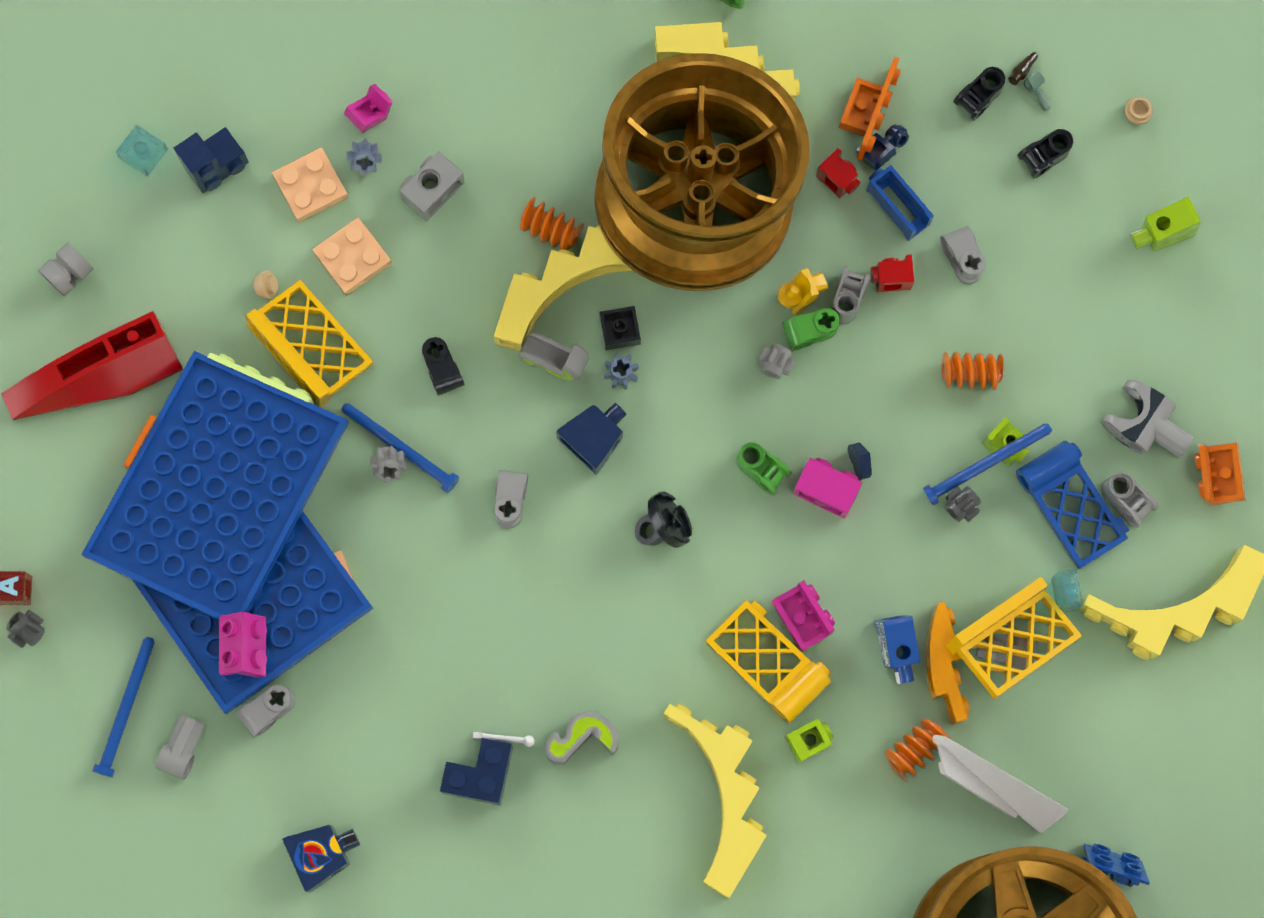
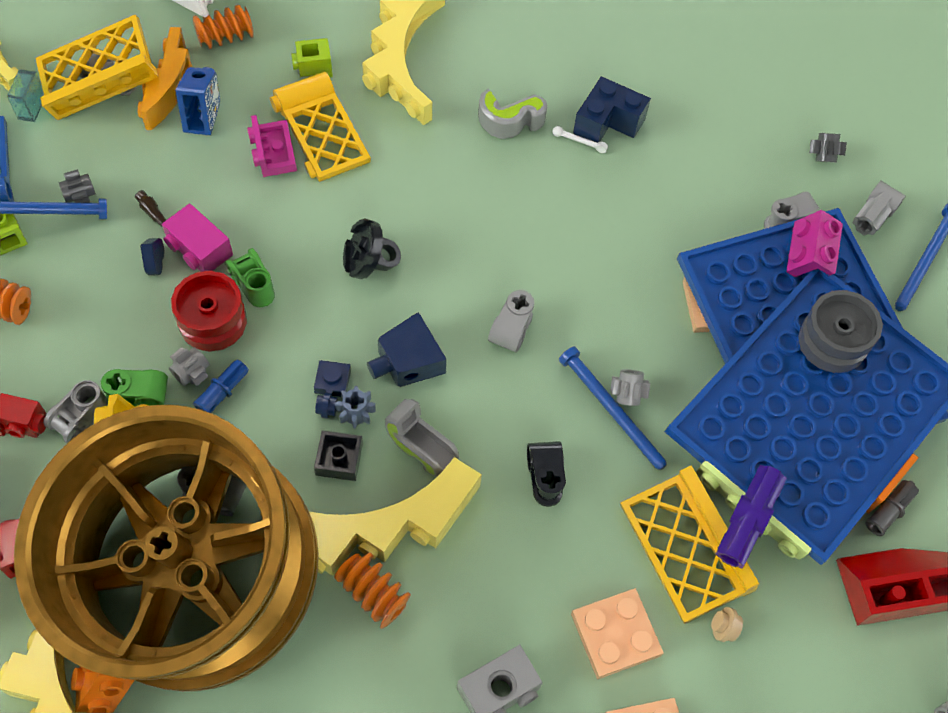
camera: 165 degrees left, 15 degrees down
(137, 427) = (892, 508): none -> dark grey axle
(214, 560) = (840, 331): none -> dark grey wheel
(242, 805) = (828, 147): none -> dark grey gear
(261, 359) = (751, 516): none -> dark purple piece
(319, 854) = (765, 98): dark blue torso -> none
(652, 394) = (330, 381): none -> dark blue plate
(742, 356) = (221, 387): none -> blue axle
(784, 397) = (209, 310): none -> red wheel
(890, 514) = (150, 207): none -> dark brown piece

